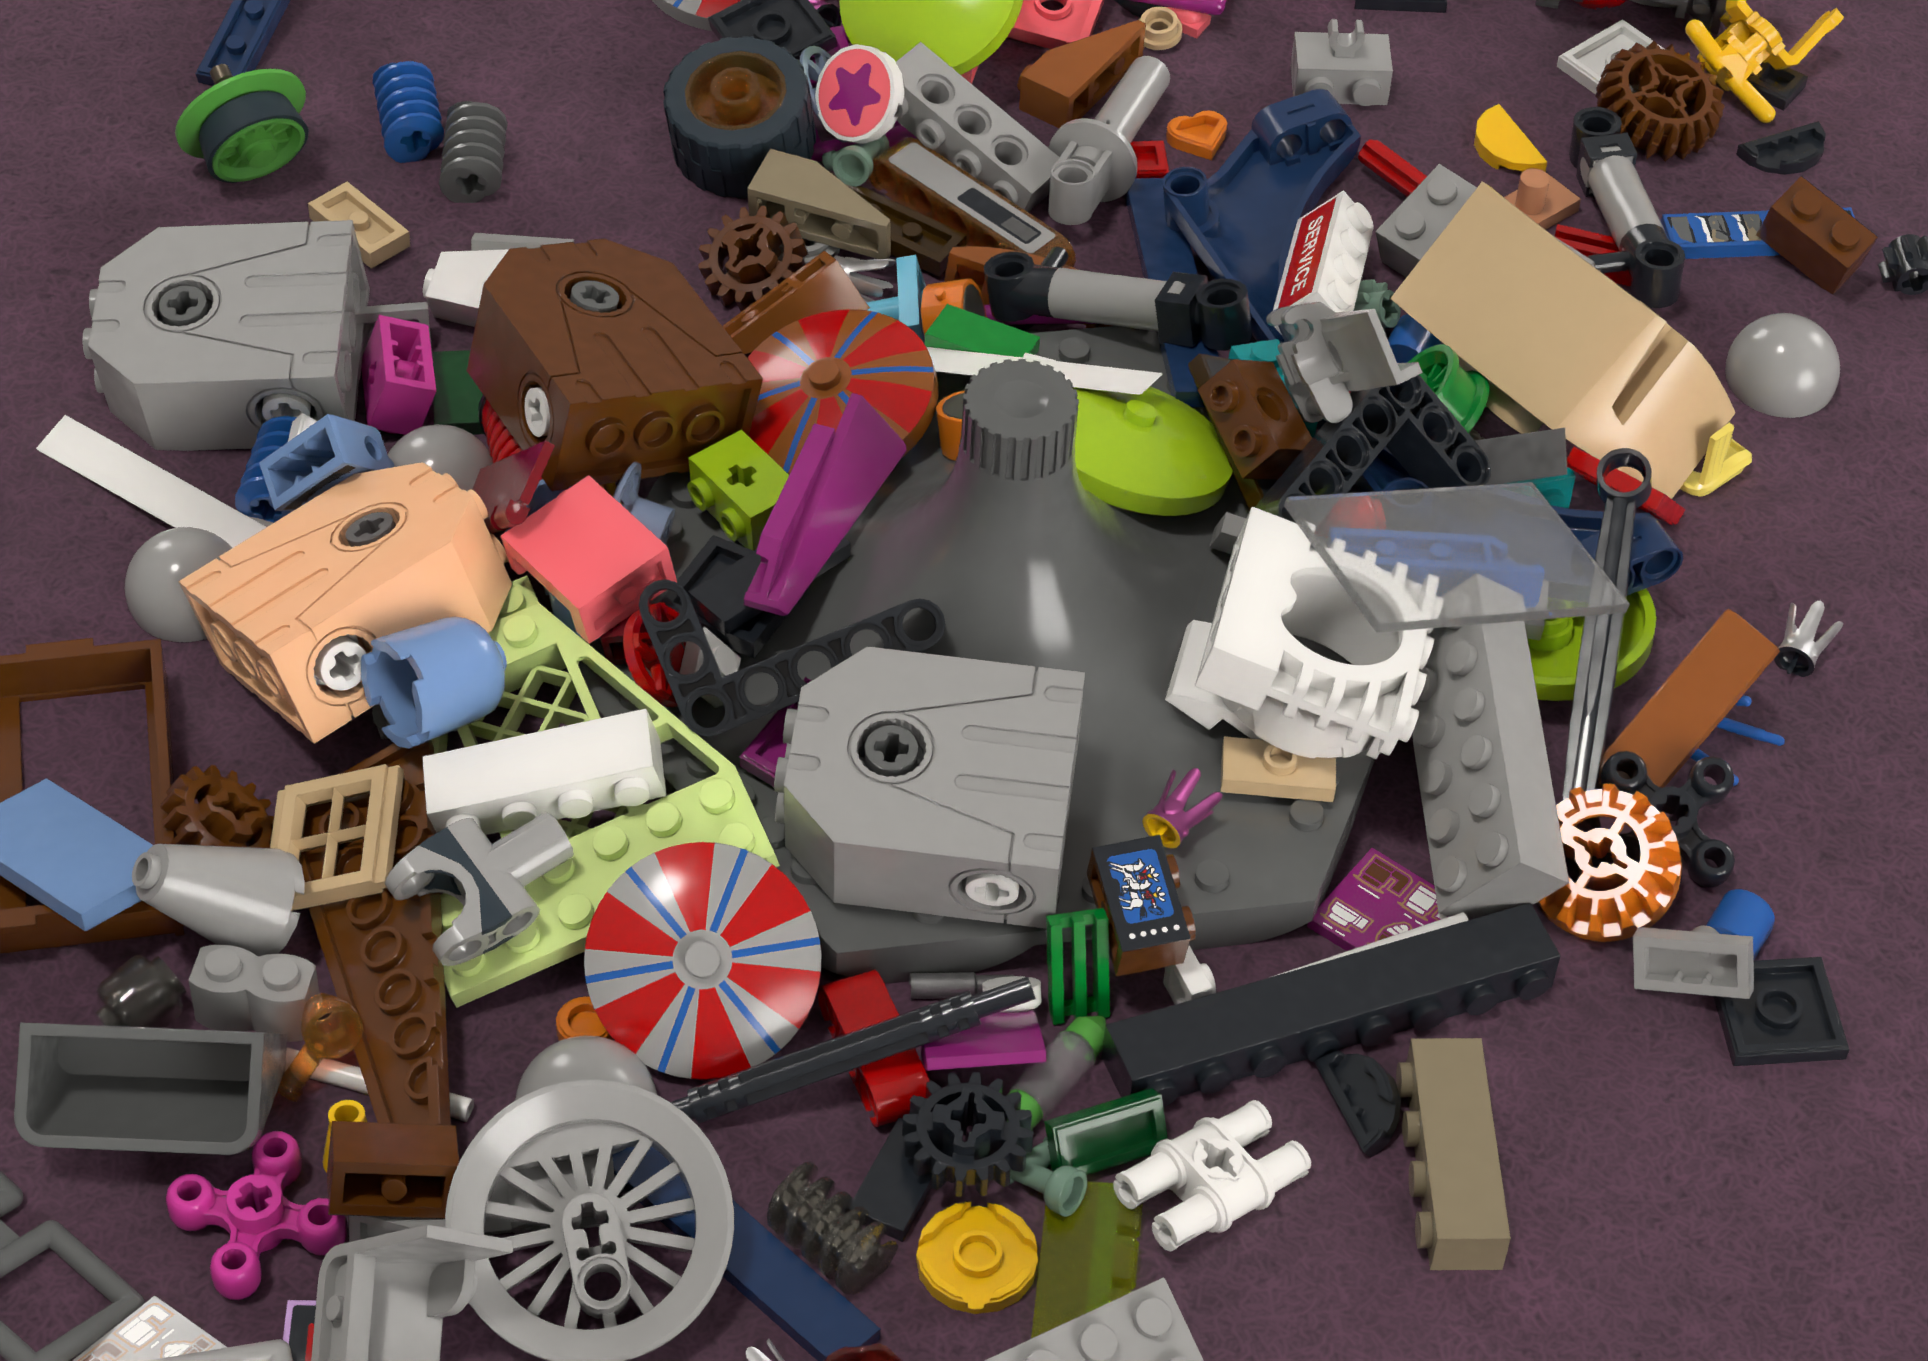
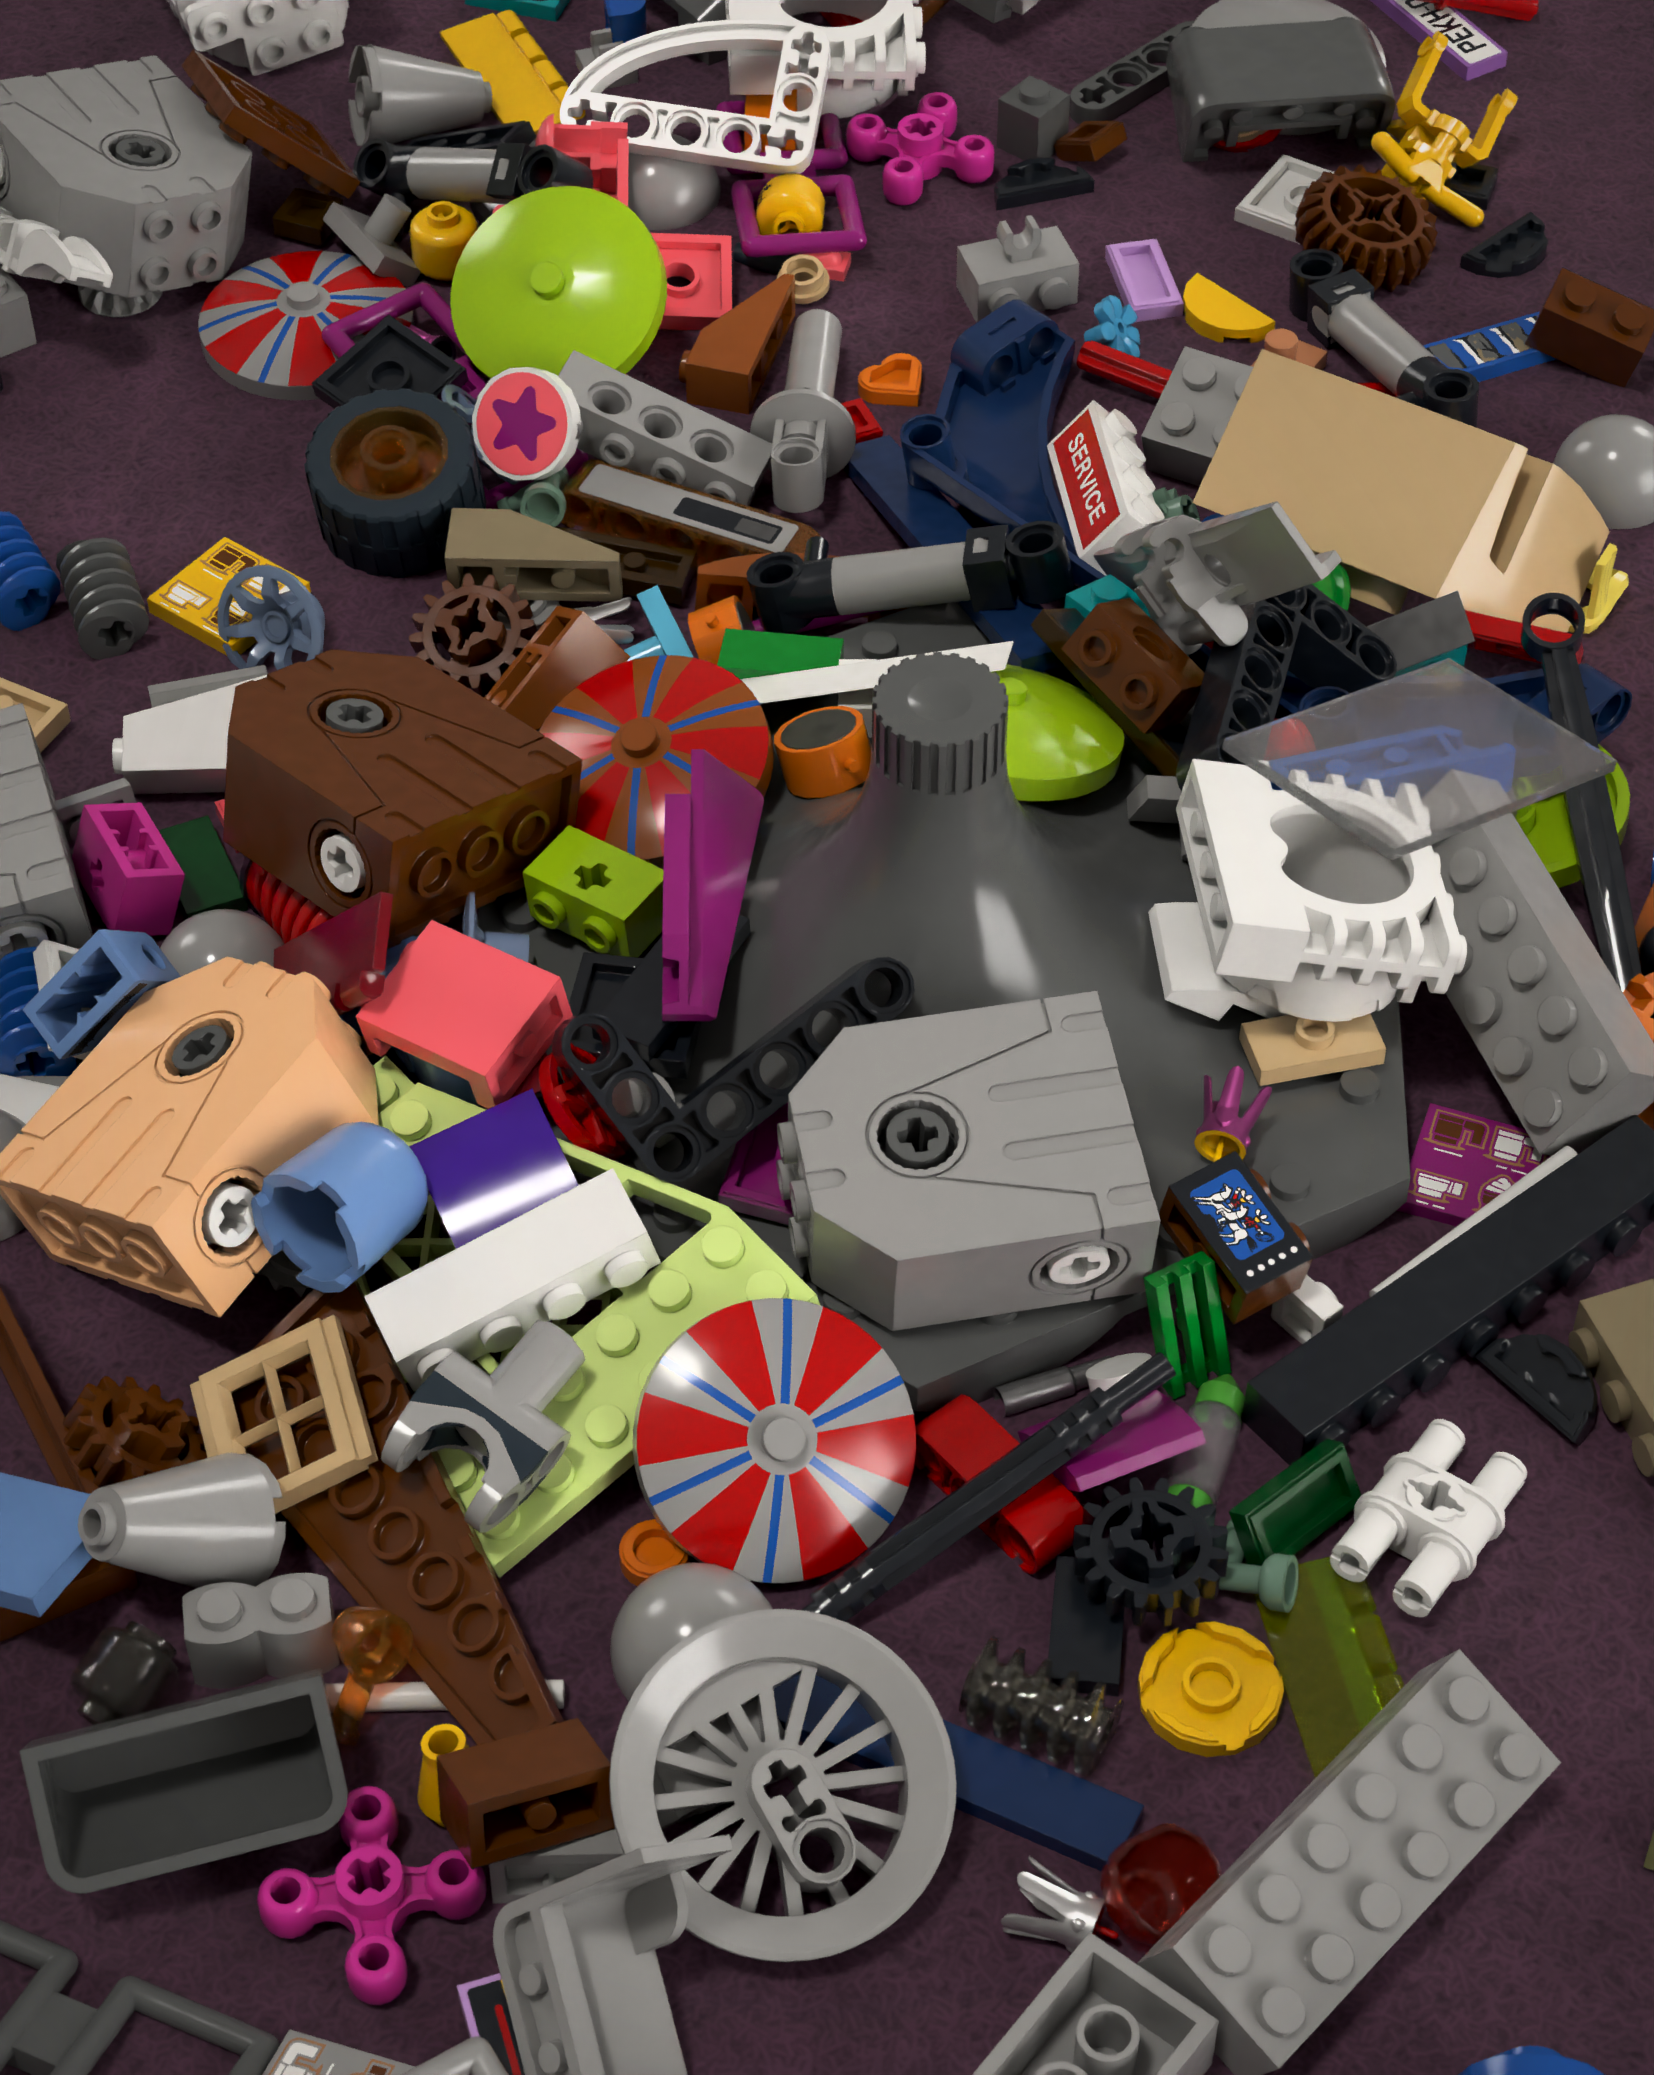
camera: 15 degrees left, 0 degrees up
(564, 682) = (494, 1167): none -> dark purple slope
(576, 178) = (193, 595): none -> yellow tile
(602, 208) = (278, 622): none -> sand blue wheel
(1405, 133) = (1115, 326): none -> dark azure plant
(1452, 99) = (1144, 279): none -> lavender tile

